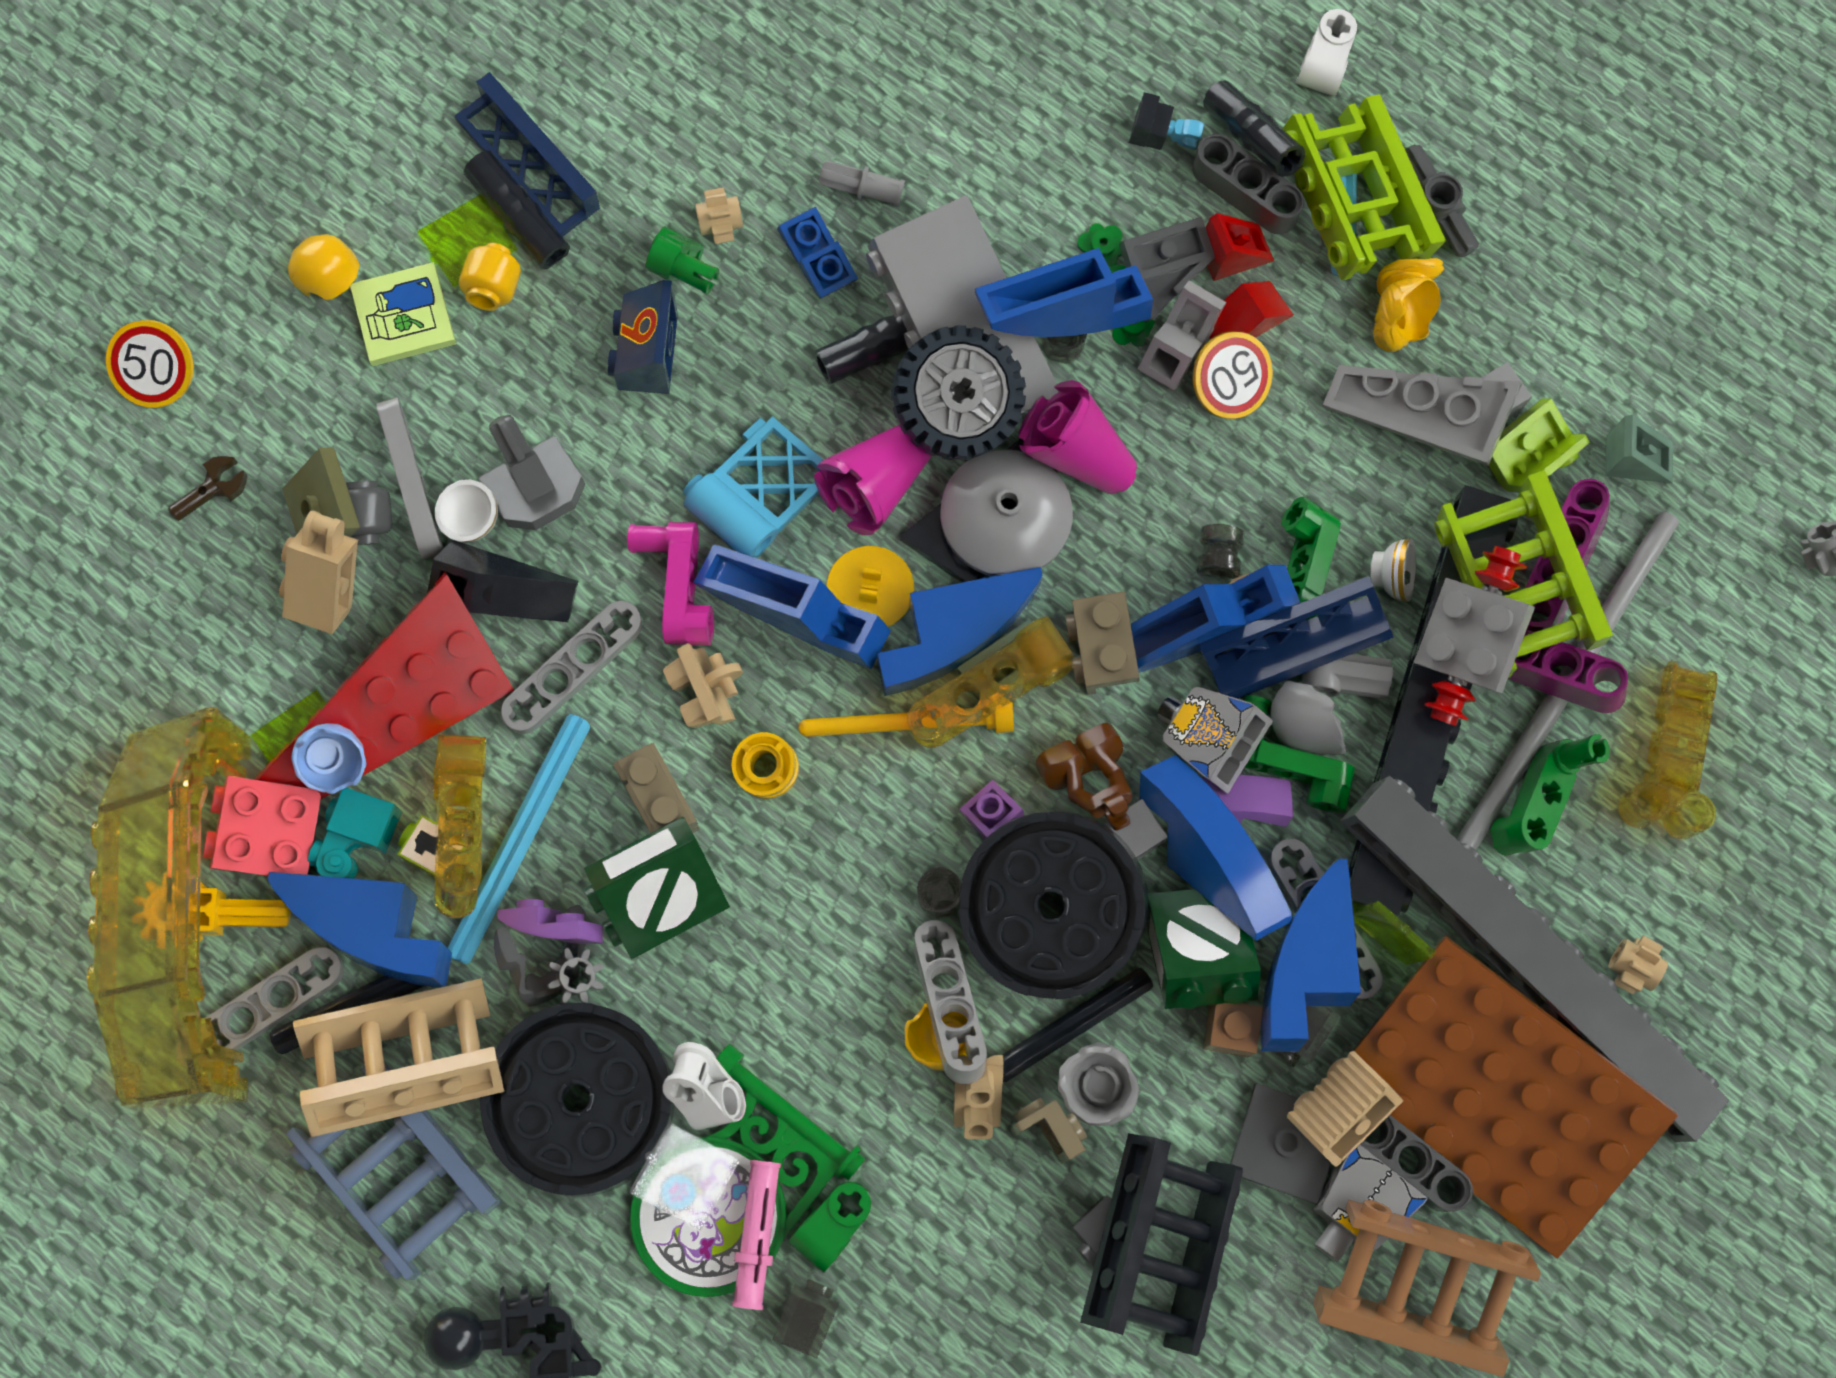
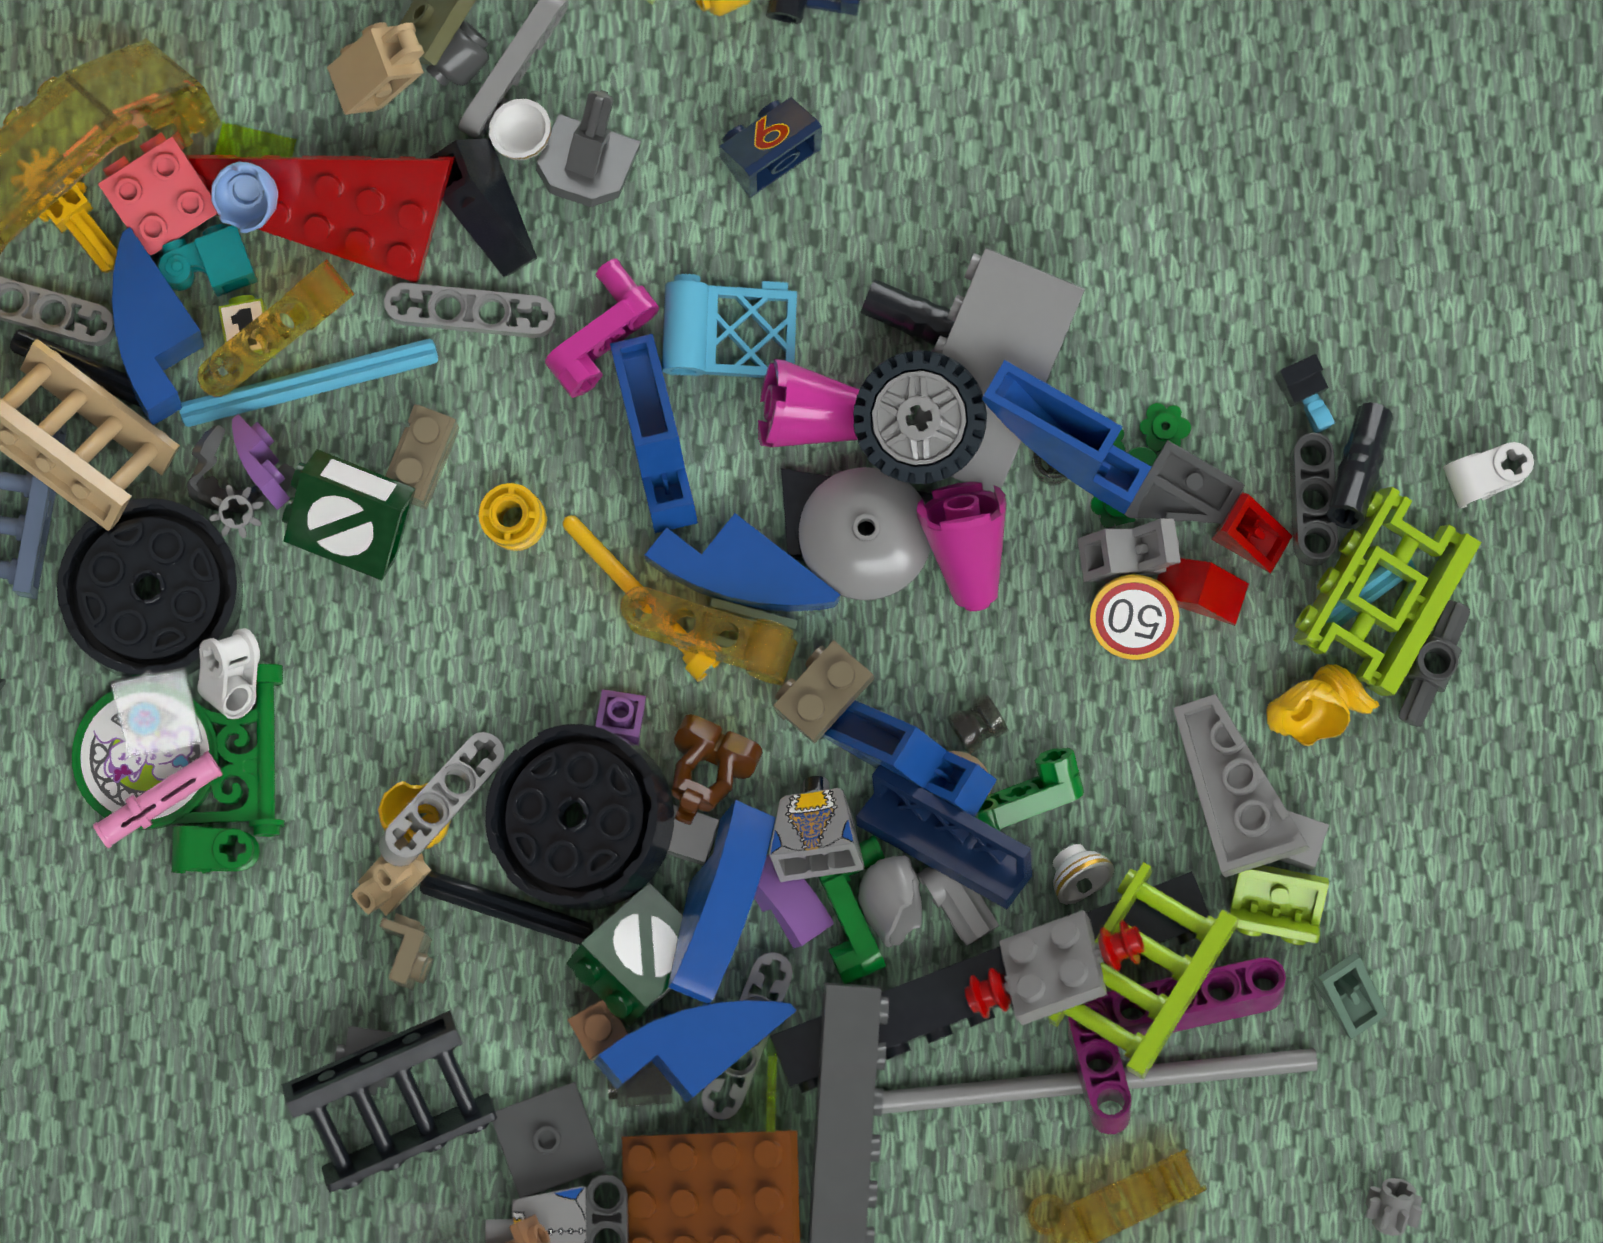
camera: 55 degrees right, 5 degrees up
(679, 258) = (850, 110): green beam -> none
(711, 683) = (540, 422): tan hips -> none
(719, 215) = (924, 112): tan gear -> none
(807, 1318) = (128, 886): clear smoke brick -> none
(817, 253) = (962, 212): blue slope -> none
(861, 182) = (1051, 197): light grey axle -> none
(873, 582) = (725, 478): yellow piece -> none
(942, 886) = (520, 719): clear smoke wheel -> none
(1098, 1085) = (470, 960): light grey hair -> none
(1344, 1108) = (600, 1156): tan brick -> none
(1554, 771) = (1014, 1124): green beam -> none

